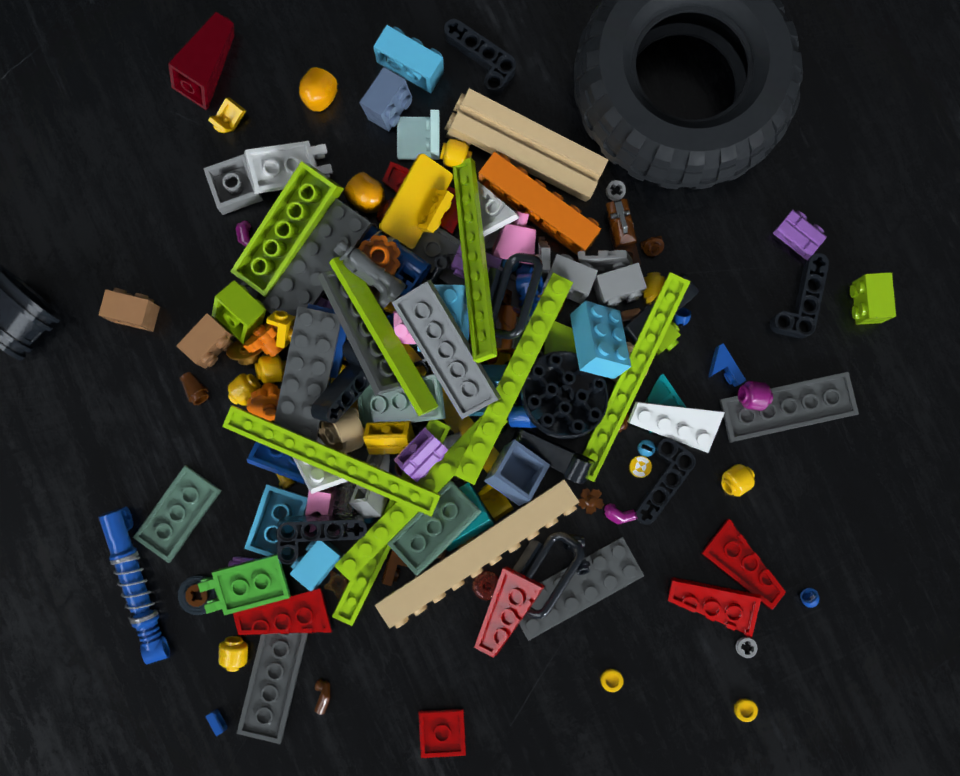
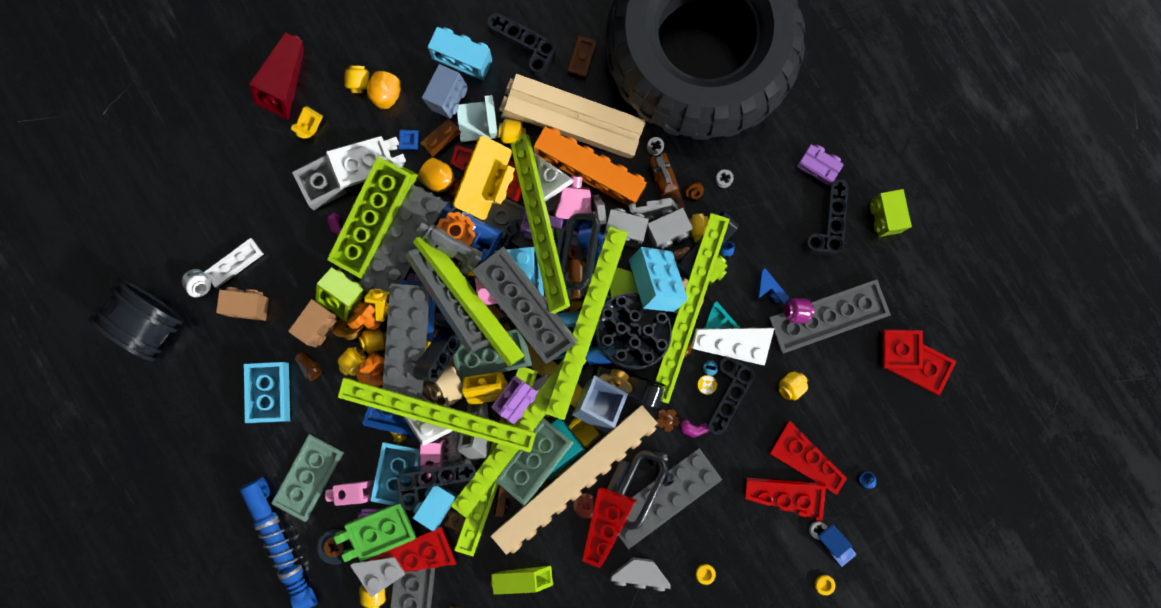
camera: 10 degrees left, 0 degrees up
(80, 279) = (196, 283): none -> white head
(125, 262) = (233, 263): none -> white plate
(143, 412) = (266, 392): none -> medium azure brick
(223, 537) = (350, 493): none -> bright pink torso
(242, 631) = (378, 574): none -> light grey wing
(289, 73) = (356, 78): none -> yellow head
(339, 149) = (408, 139): none -> blue tile
(375, 151) = (440, 137): none -> reddish brown plate
(403, 660) = (522, 580): none -> lime slope
(538, 669) = (640, 573): none -> light grey slope
(541, 447) = (618, 379): none -> pearl gold piece
(545, 79) = (582, 56): none -> reddish brown plate
(692, 231) = (722, 184): none -> light grey bush
(766, 667) = (837, 545): none -> blue slope
(867, 454) = (902, 349): none -> red tile
(886, 475) = (934, 372): none -> red tile

